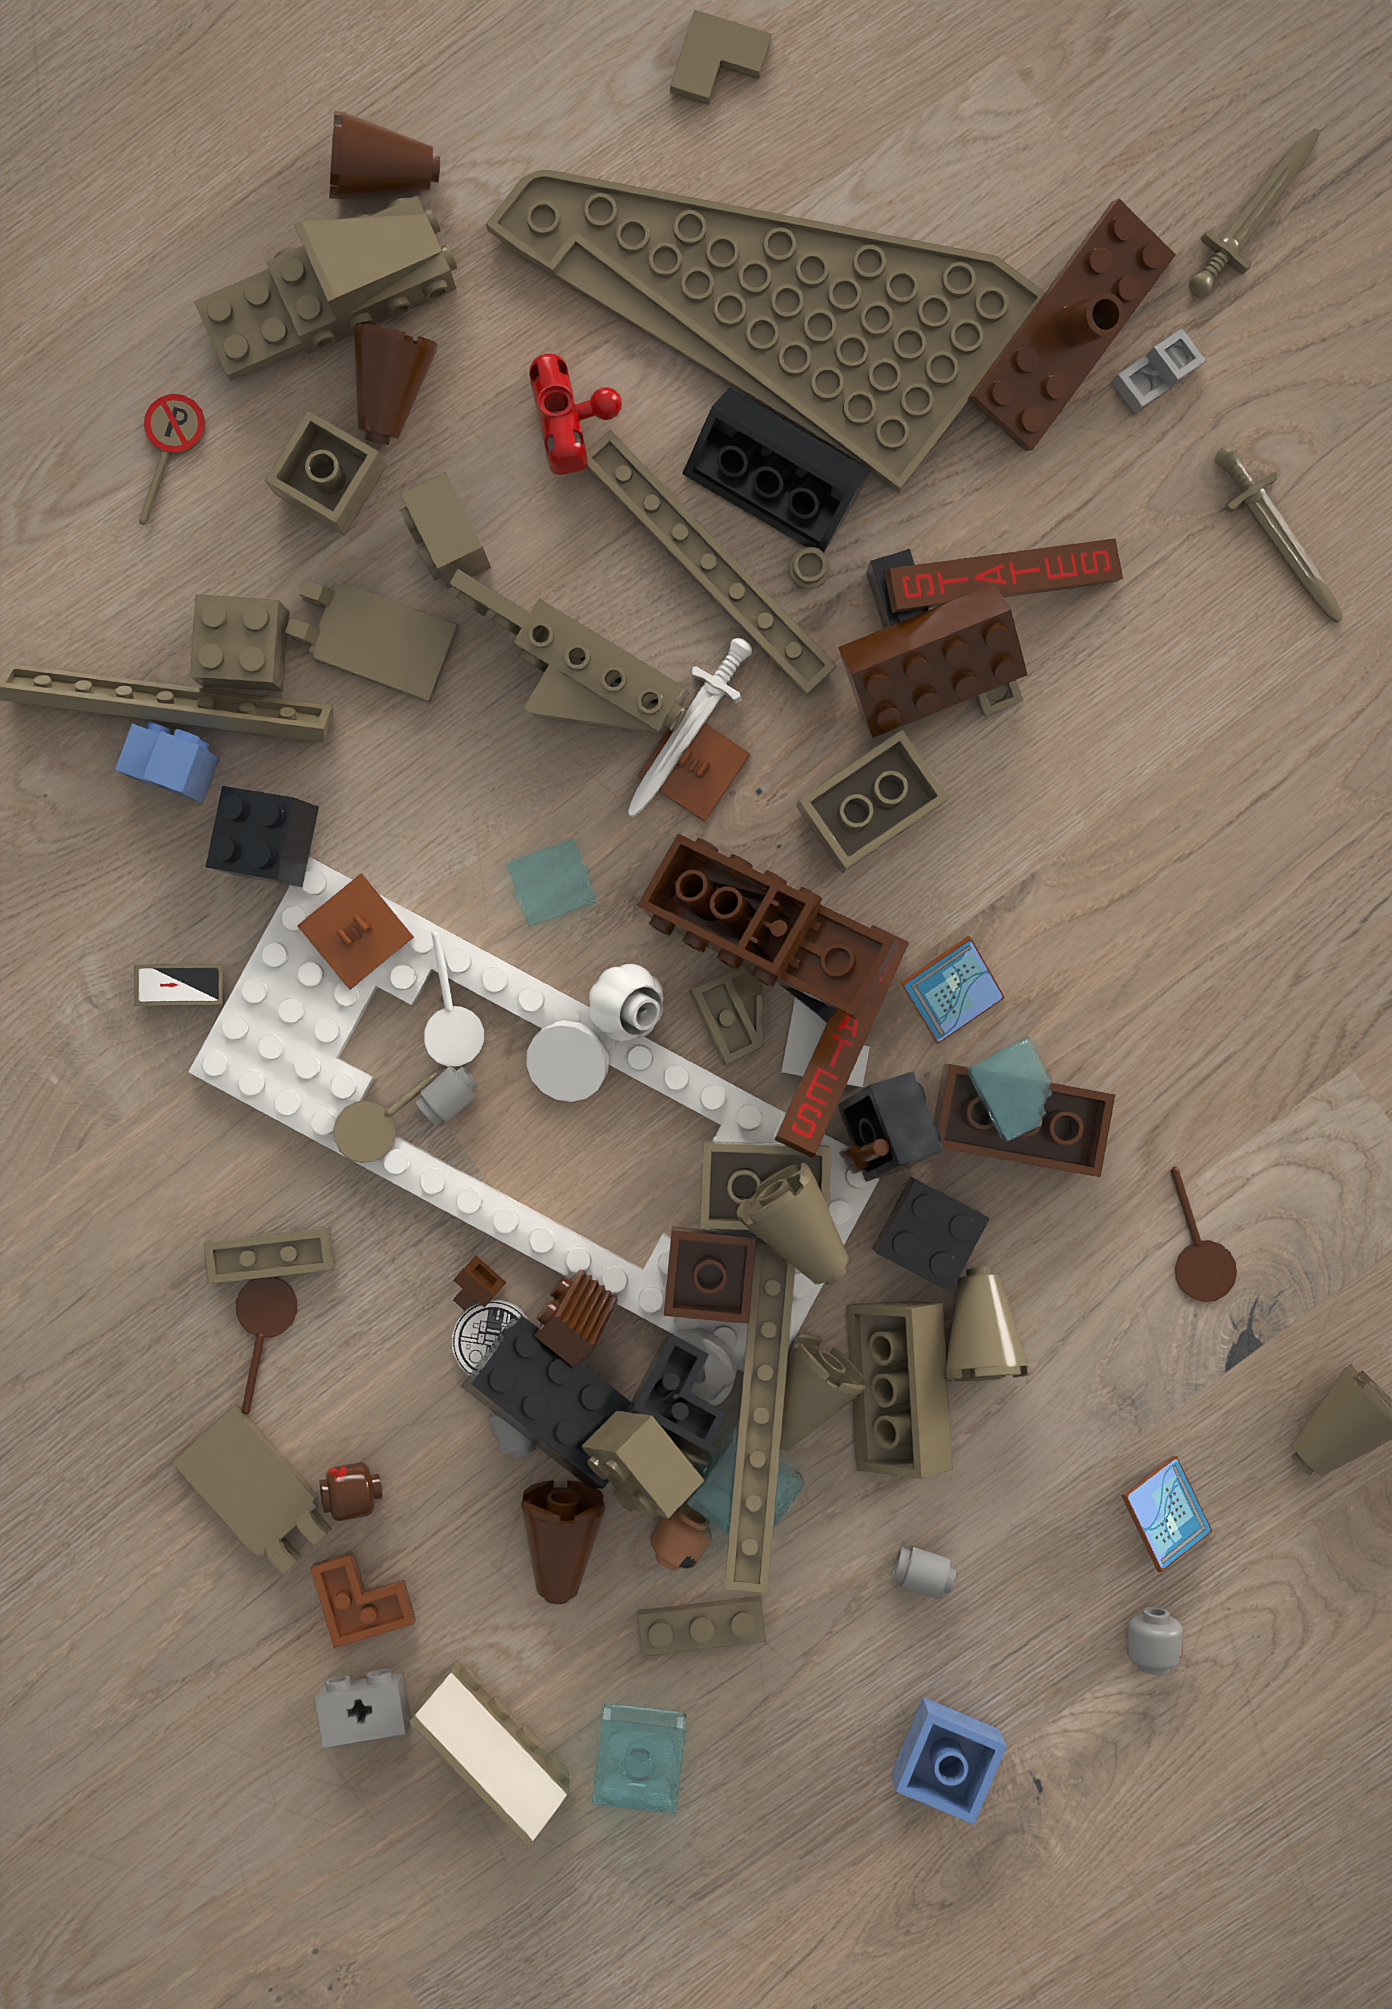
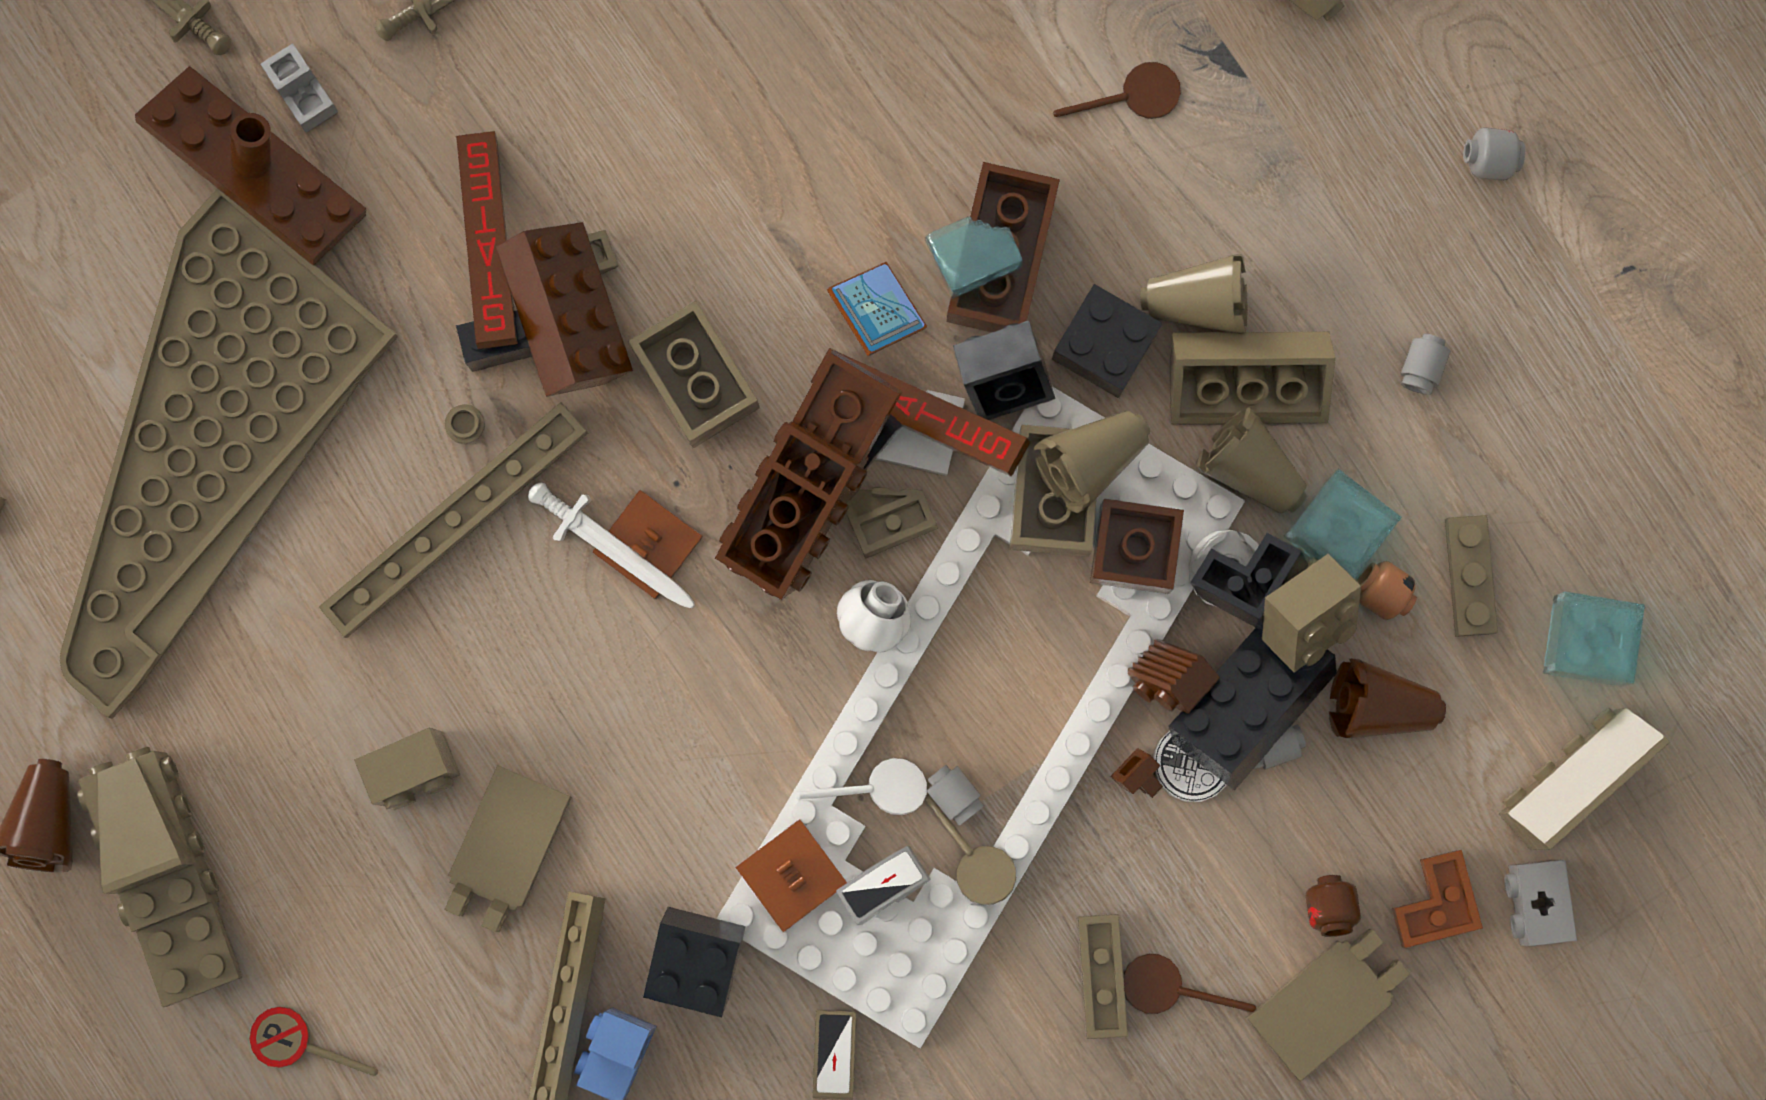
camera: 85 degrees left, 5 degrees down
(239, 642) = (502, 978): dark tan brick -> none
(326, 472) = (341, 884): dark tan brick -> none
(348, 1025) = (883, 885): none -> slope
(388, 378) = (254, 819): reddish brown cone -> none
(551, 882) = (753, 686): clear light blue piece -> none
(555, 393) = (278, 657): red piece -> none
(567, 1061) = (927, 676): white tile -> none
(574, 688) = (570, 644): dark tan wedge -> none
(760, 1423) = (1279, 504): dark tan plate -> none
(774, 471) = (370, 450): black slope -> none
(858, 1157) = (1032, 402): reddish brown piece -> none
(948, 1760) = (1600, 349): medium blue brick -> none
(1166, 1513) = (1376, 136): piece -> none

